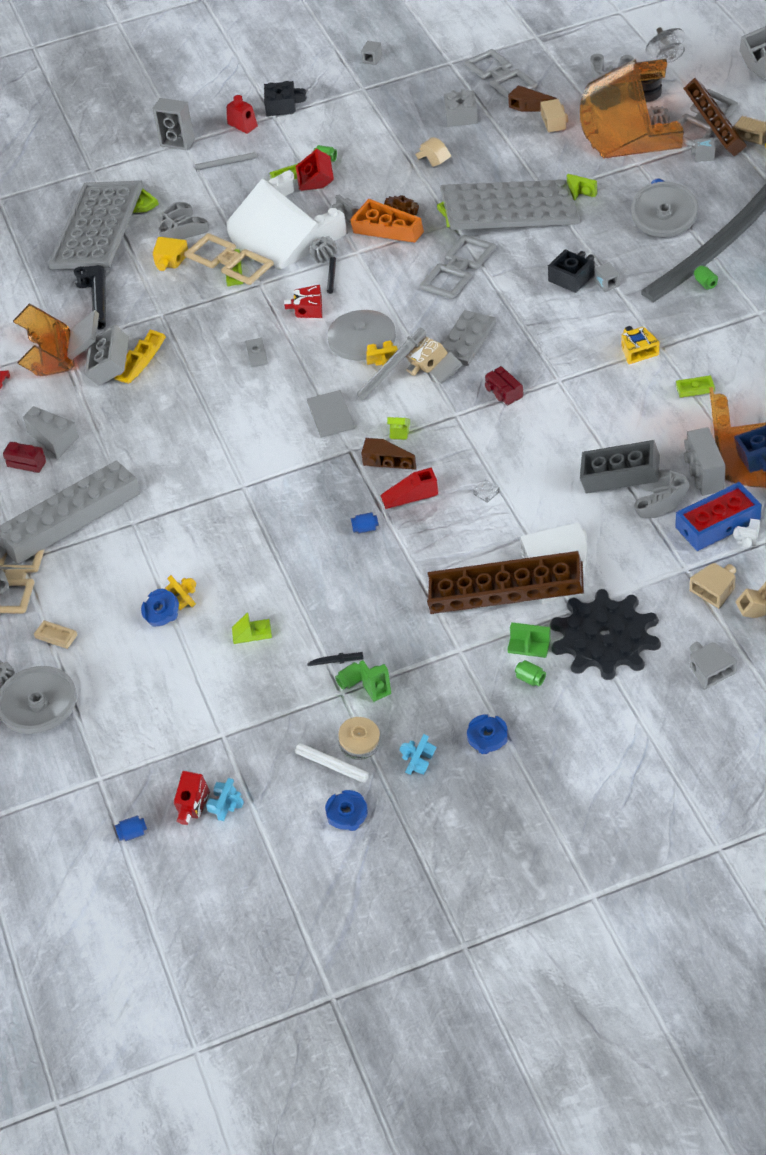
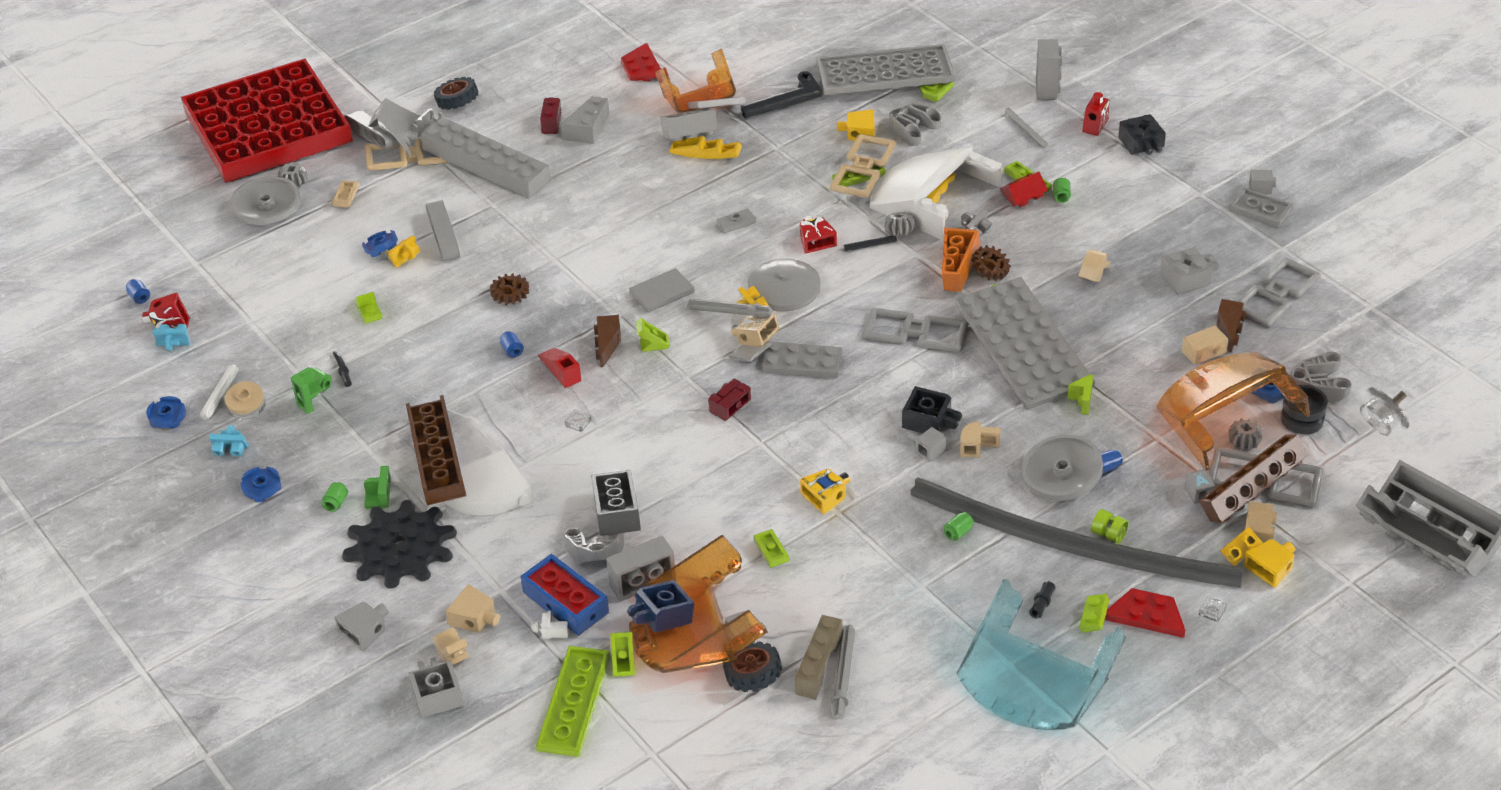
camera: 70 degrees right, 5 degrees down
(162, 559) = (443, 230): none -> light grey beam
(281, 516) = (509, 289): none -> reddish brown gear
(398, 61) = (1261, 207): none -> light grey tile
(610, 251) = (975, 436): none -> tan brick
(734, 199) = (1107, 525): none -> lime wheel

